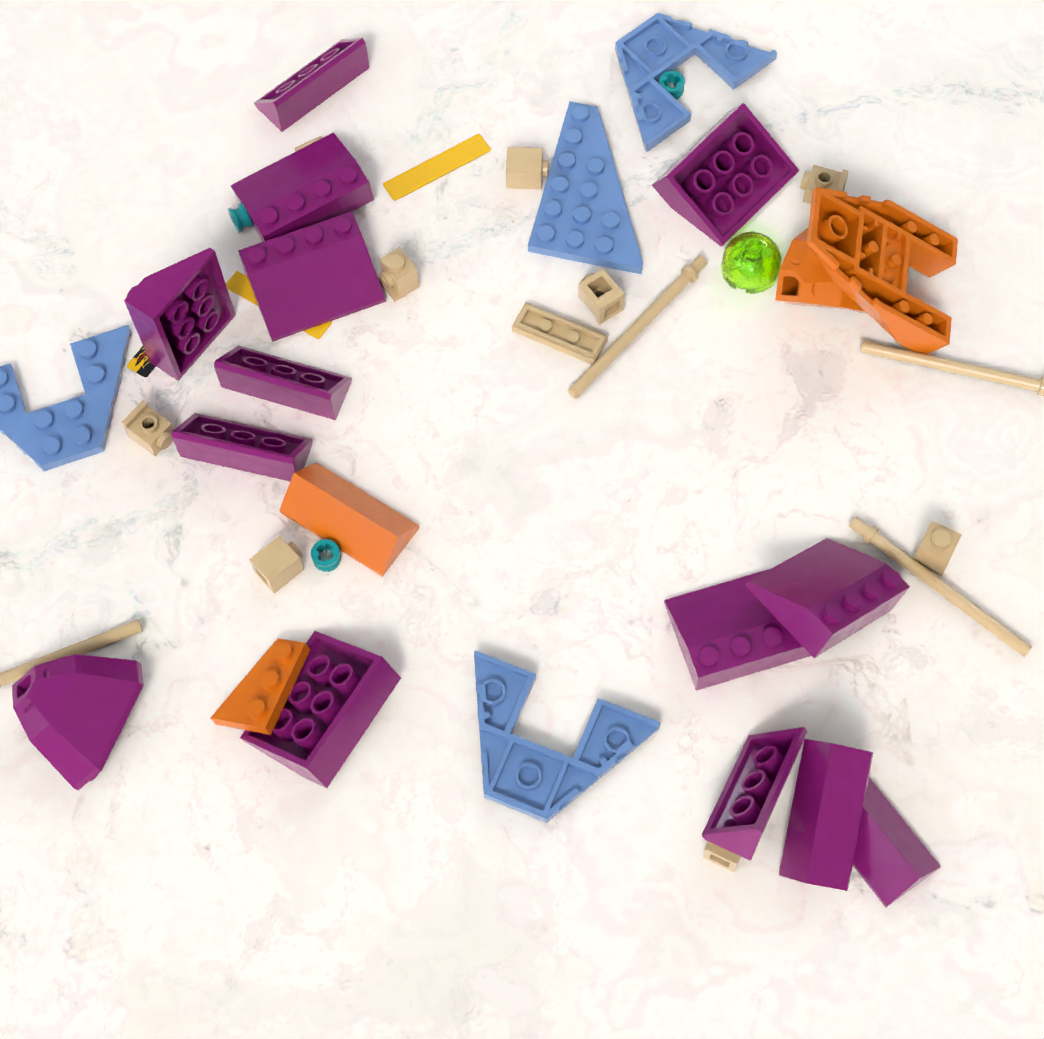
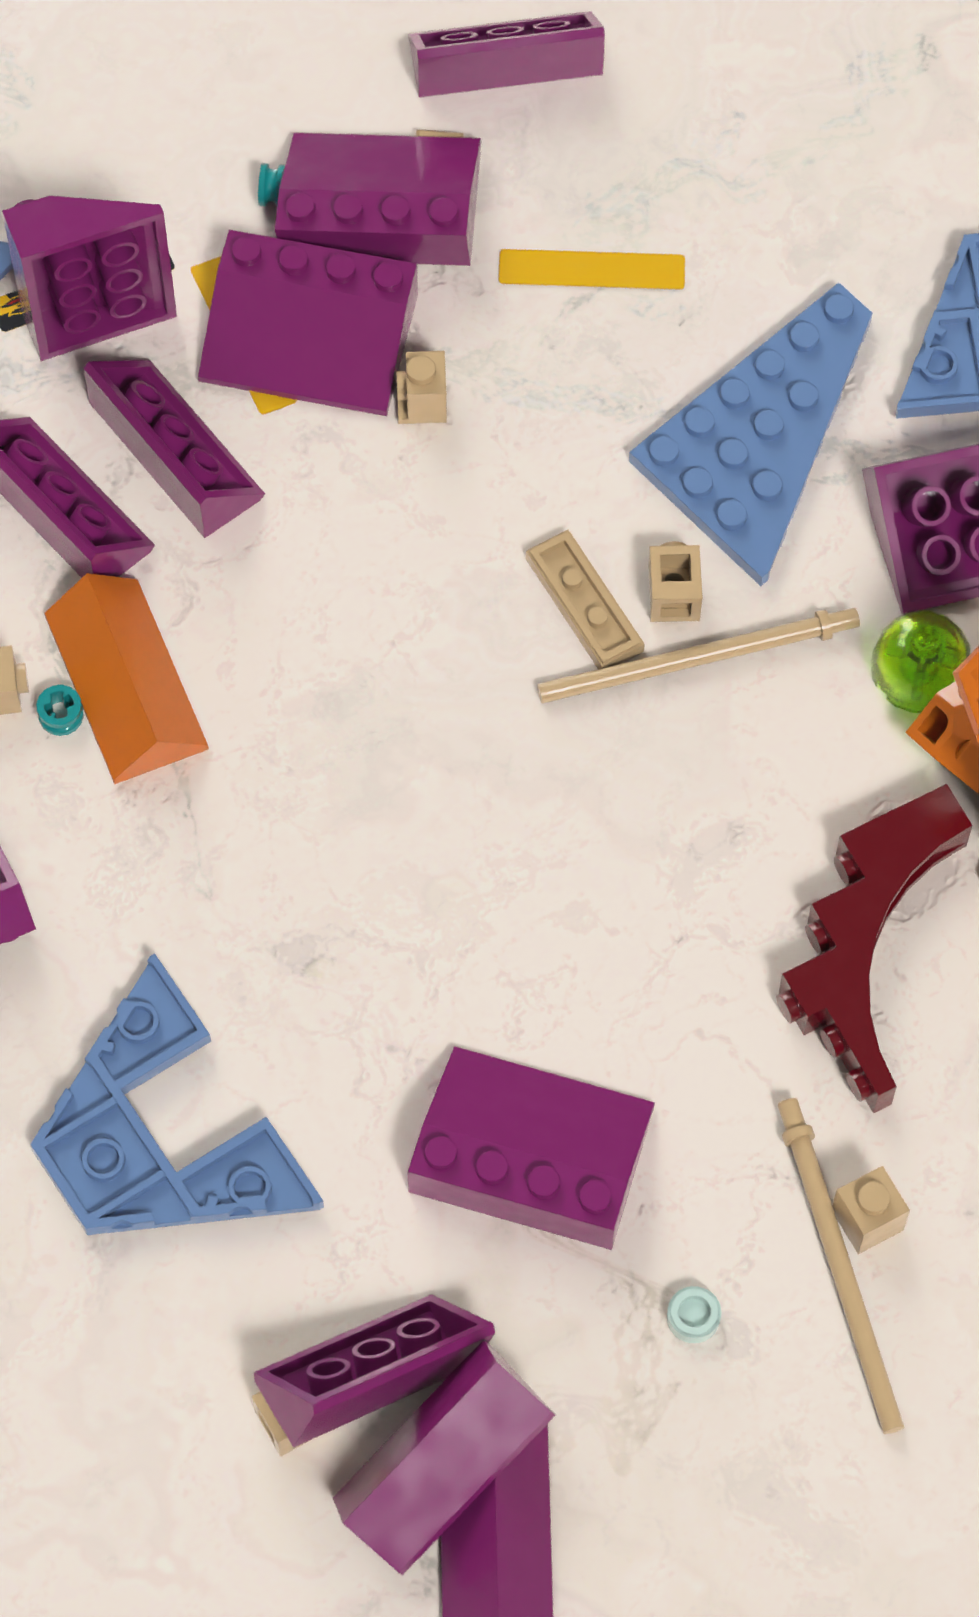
camera: 30 degrees right, 0 degrees up
(525, 168) = (704, 341): tan brick -> none
(819, 416) = (834, 988): none -> dark red arch
(828, 593) = (663, 1173): magenta slope -> none
(887, 658) = (694, 1314): none -> light aqua tile

